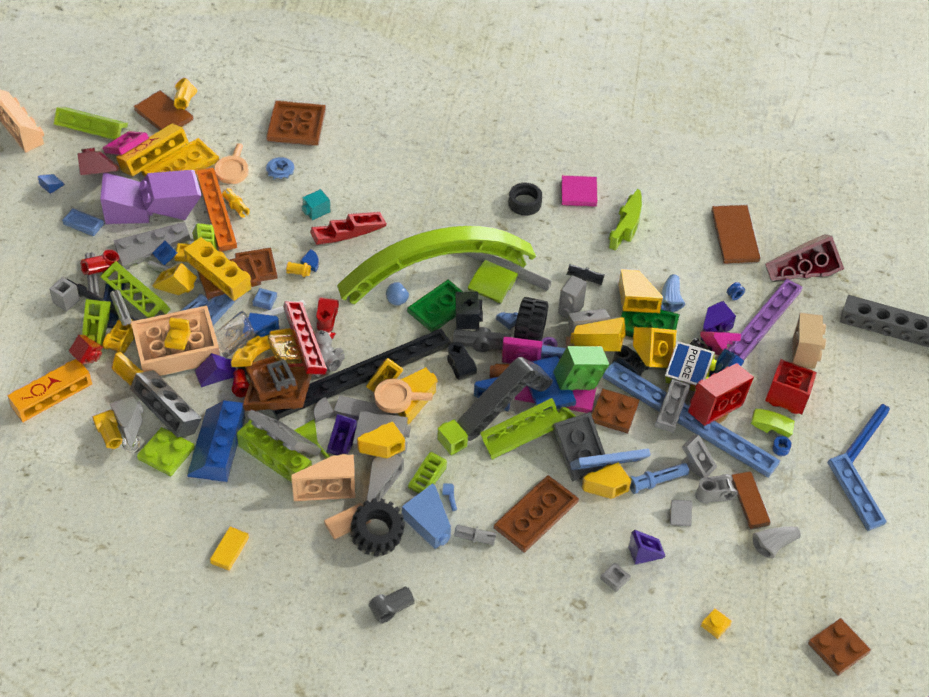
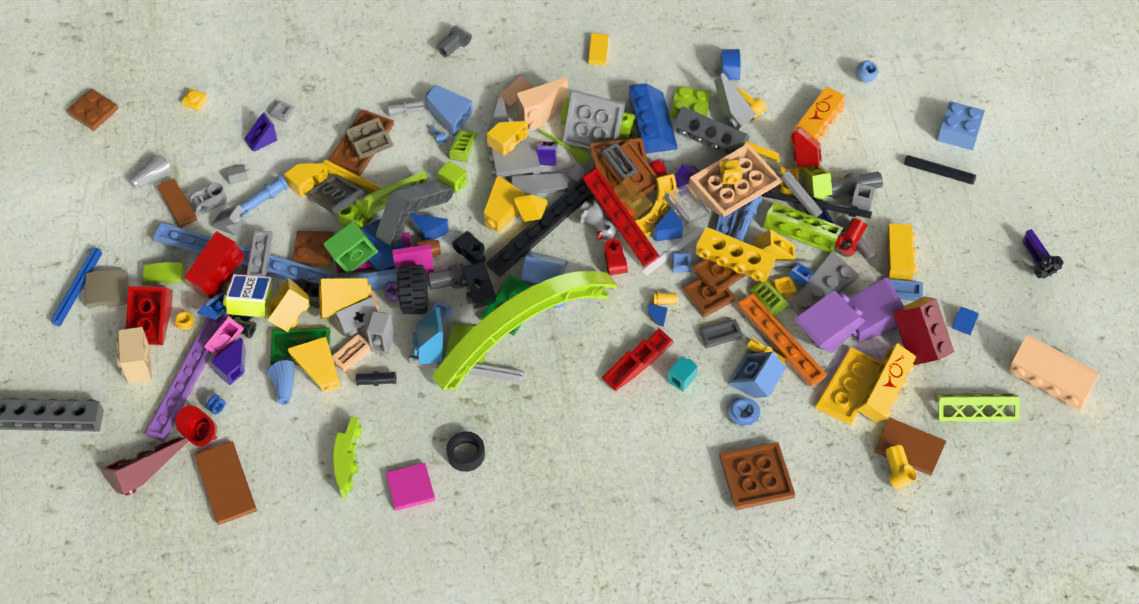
camera: 165 degrees right, 5 degrees up
(58, 318) = (848, 184): none -> dark grey piece
(64, 246) = (901, 252): none -> yellow brick
(96, 473) = (731, 63): none -> blue brick
(125, 142) = (919, 382): dark pink tile -> none
(232, 168) = (795, 398): light nougat piece -> none
(254, 187) = (758, 374): none -> medium blue slope
(264, 231) = (720, 333): none -> dark grey tile
(383, 512) = (485, 81): black tyre -> none
(395, 326) = (541, 268): none -> medium blue slope
(396, 396) = (511, 183): light nougat piece -> none
(527, 502) = (369, 138): none -> dark tan slope
(529, 276) = (429, 338): none -> dark azure slope
(556, 471) = (351, 177): none -> yellow axle
(606, 459) = (306, 186): medium blue tile -> none
(609, 306) = (353, 355): none -> light nougat tile
(752, 270) = (196, 426): none -> red piece
(758, 373) = (184, 321): none -> yellow plate
(781, 451) = (151, 253): blue bush -> none
(832, 424) = (107, 288): none -> dark tan slope
(857, 492) = (81, 230): medium blue tile -> none

